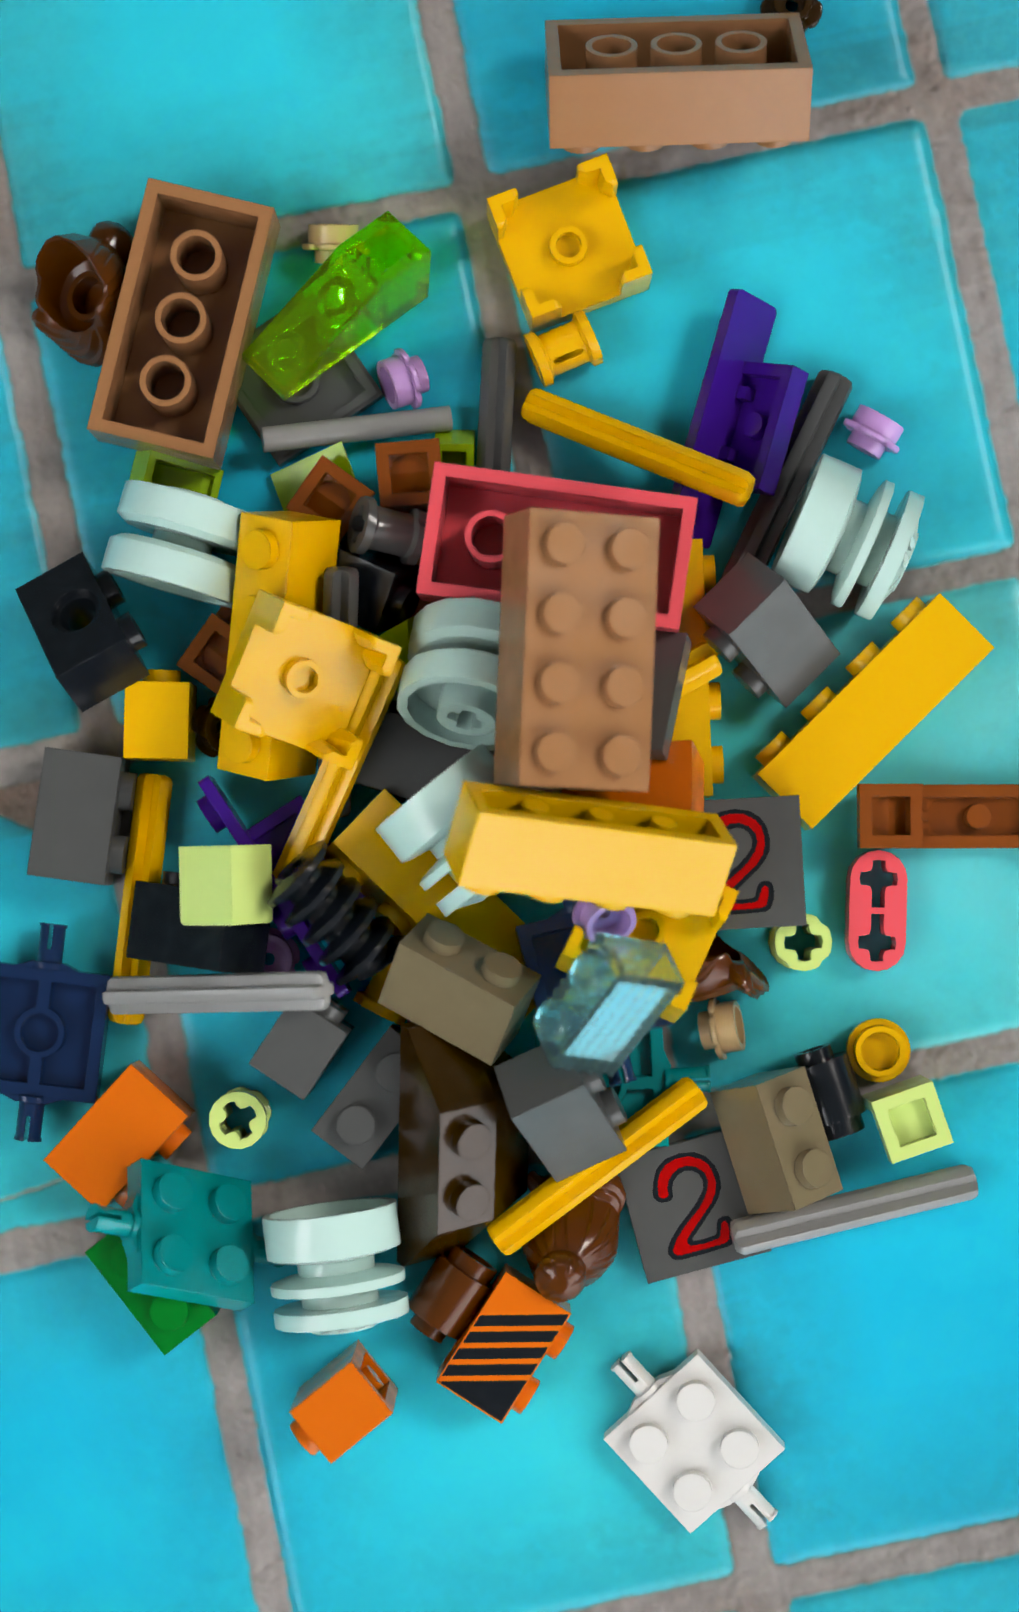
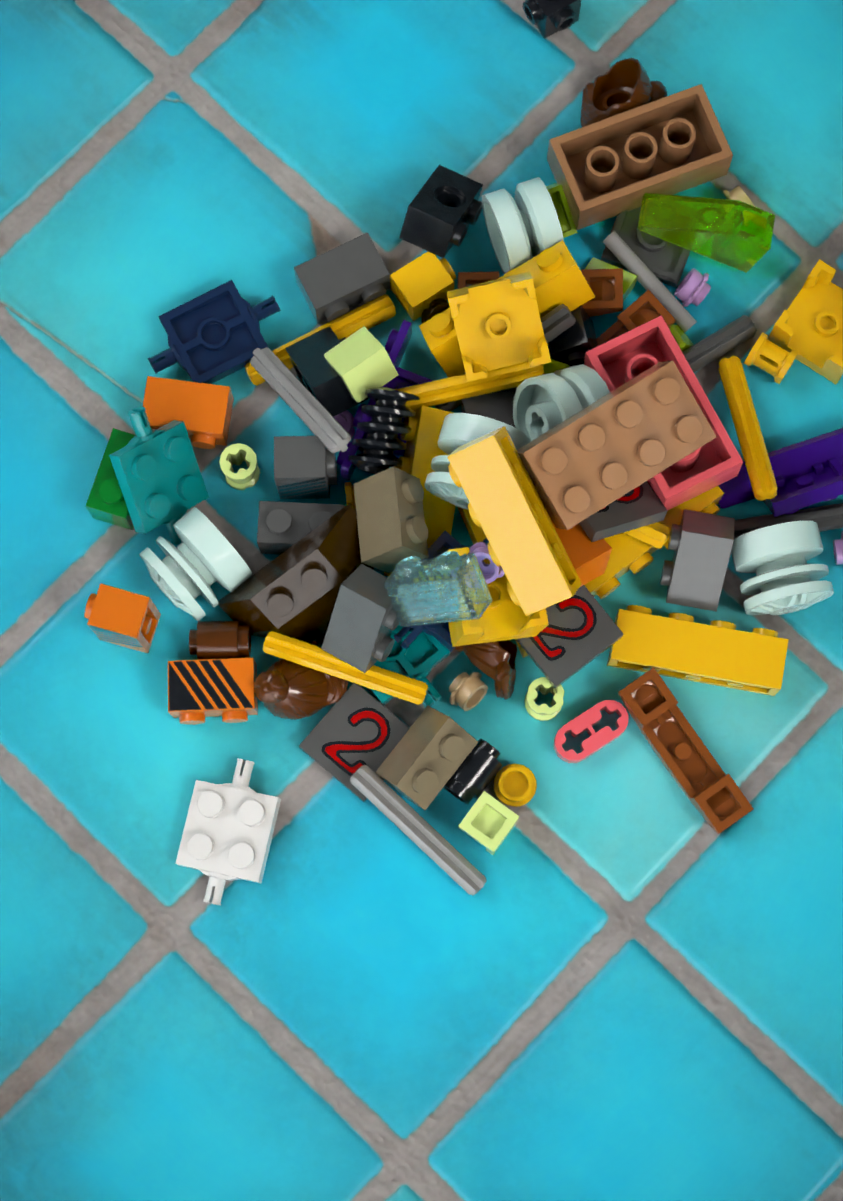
camera: 60 degrees right, 10 degrees down
(386, 531) = (605, 321): dark grey bush -> none

